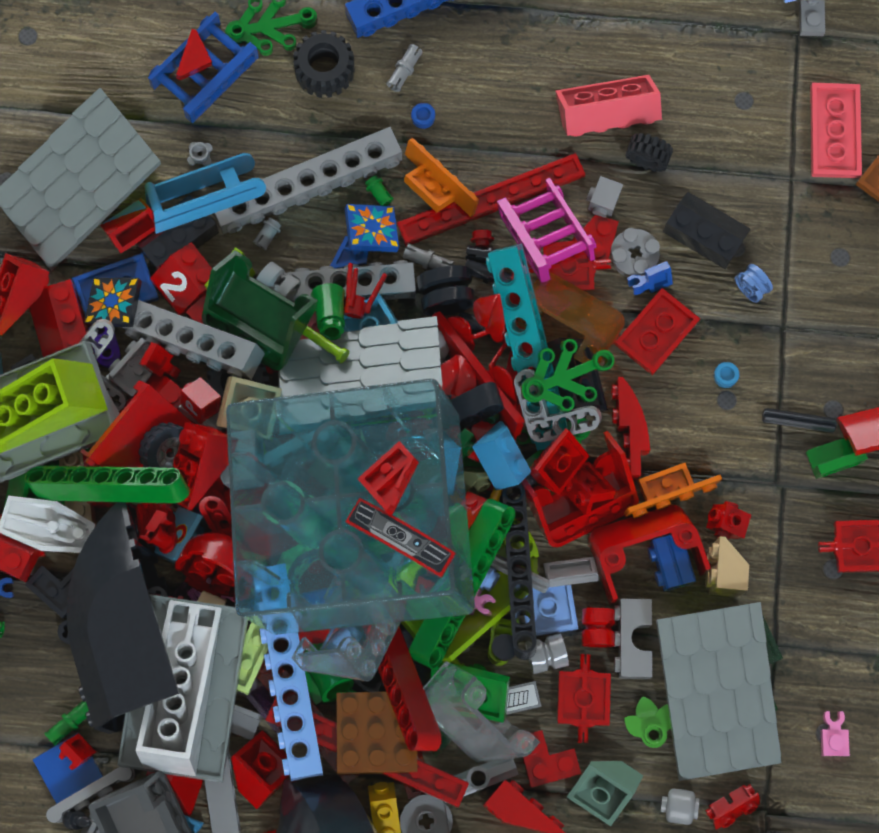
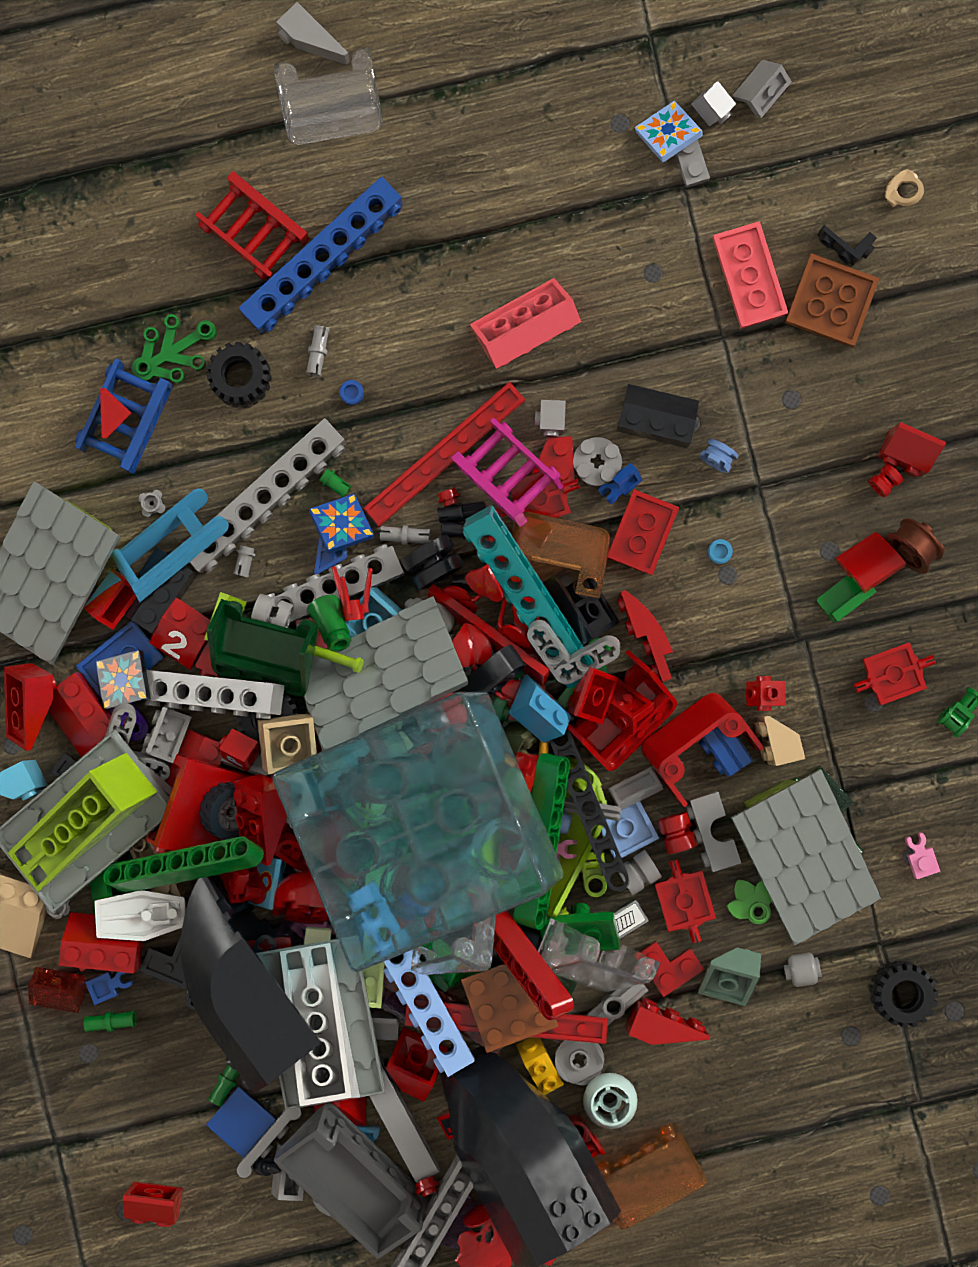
camera: 15 degrees left, 10 degrees up
(77, 750) = (243, 1106): red tile -> none
(158, 362) = (187, 722): red plate -> none
(390, 476) = (450, 804): red wing -> none
(401, 537) = (479, 857): slope -> none
(435, 182) = (386, 459): orange bracket -> none
(503, 647) = (596, 883): black tile -> none
(562, 376) = (571, 618): green plant -> none
(649, 152) = (579, 359): black tyre -> none
(667, 486) = (699, 678): orange bracket -> none
(725, 814) = (845, 960): red hinge -> none
(799, 420) = (801, 572): black axle -> none

